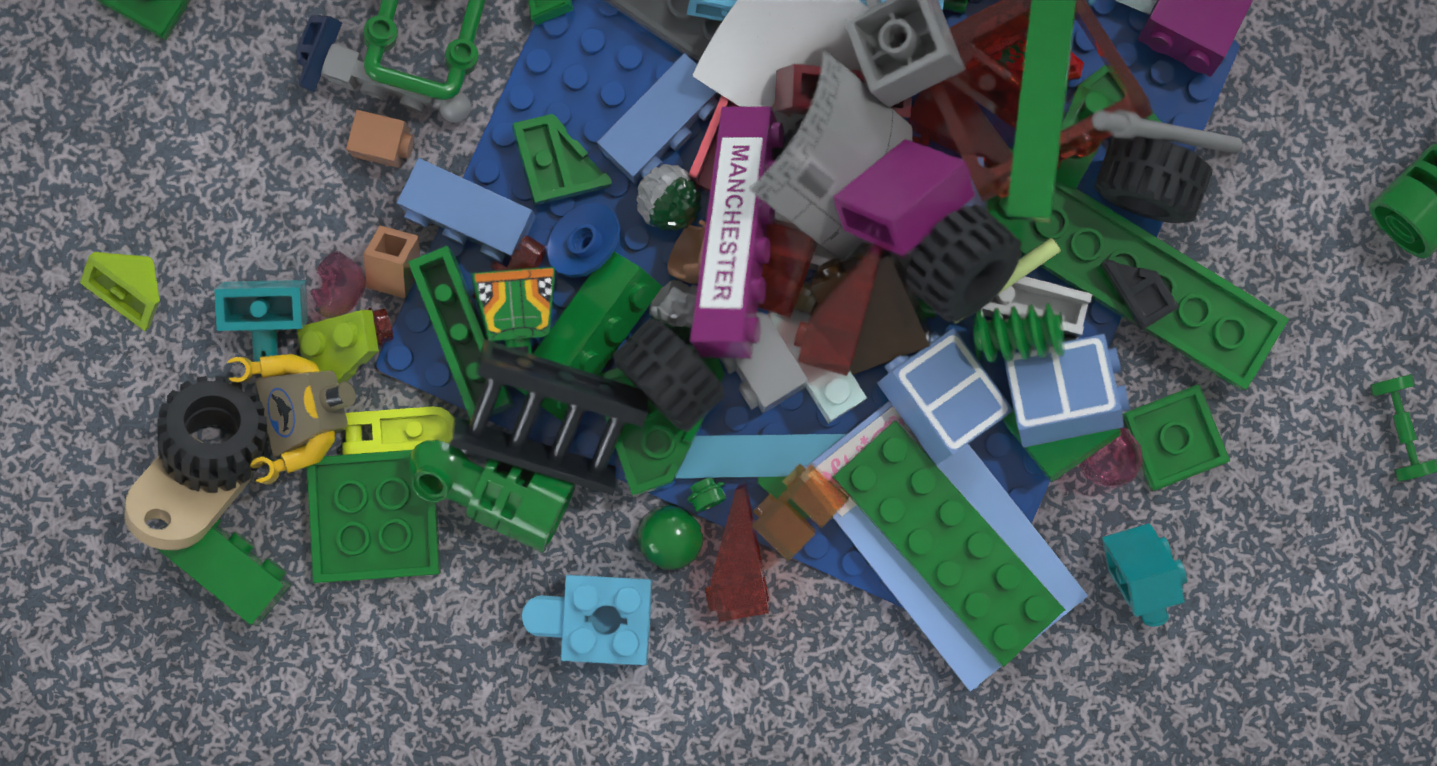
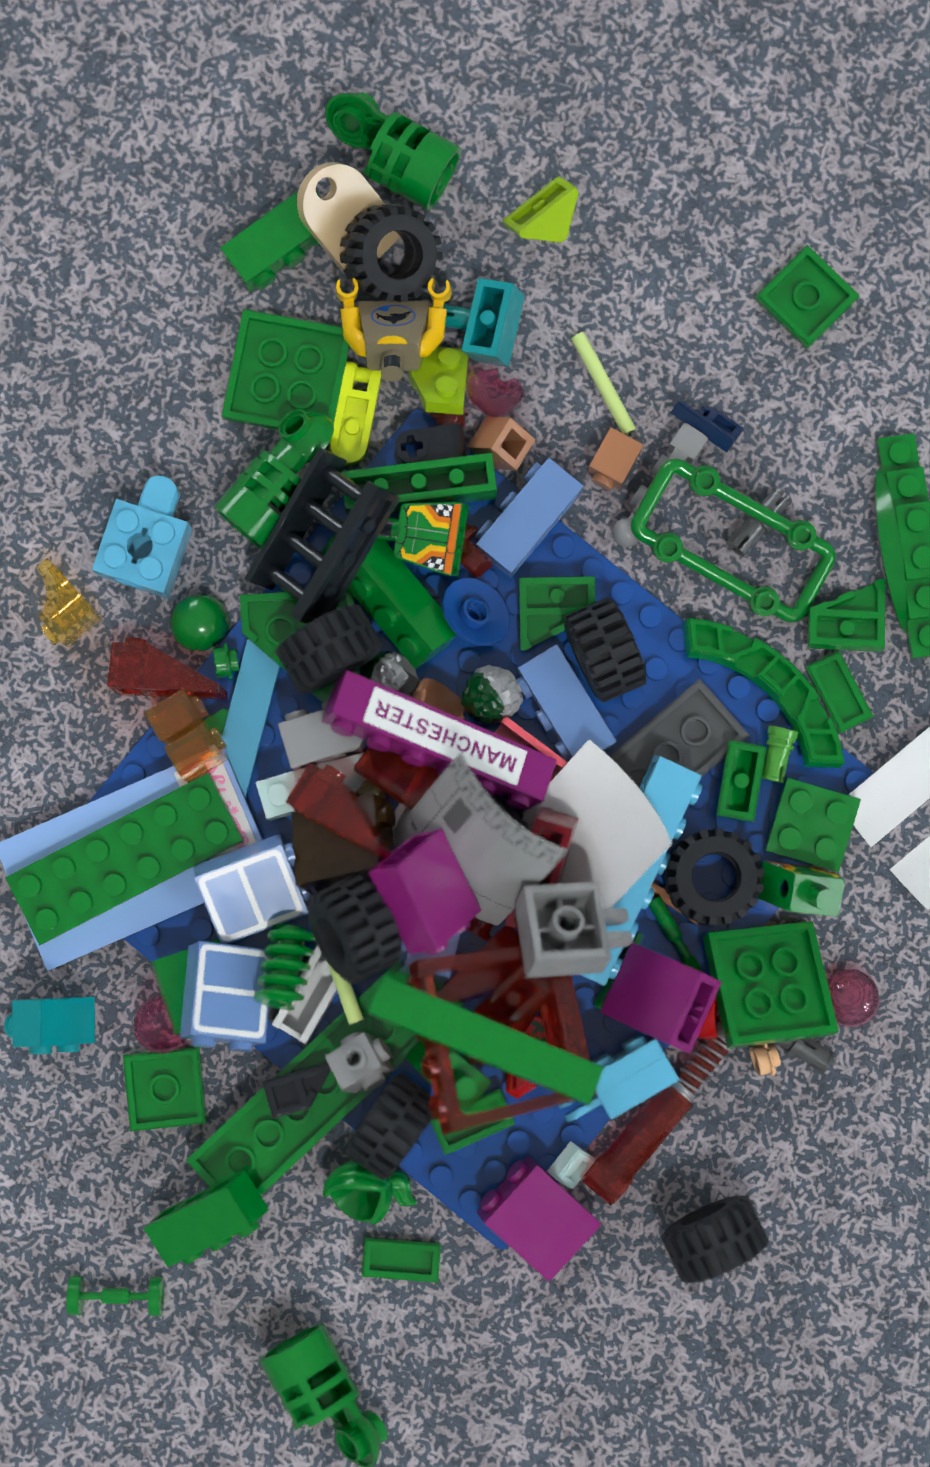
camera: 105 degrees right, 0 degrees up
(96, 448) = (403, 154): none -> green cylinder
(298, 175) = (603, 383): none -> yellowish green bar
(413, 332) = (431, 443): none -> black piece
(590, 87) = (605, 649): none -> black tyre
(695, 684) = (66, 611): none -> clear yellow arch
(1103, 240) = (360, 1062): none -> light grey brick
(1128, 124) = (432, 1104): light grey bar -> none
(1227, 197) = (365, 1195): none -> green hair
(1279, 144) = (401, 1259): none -> green tile
(1302, 348) = (207, 1220): none -> green brick

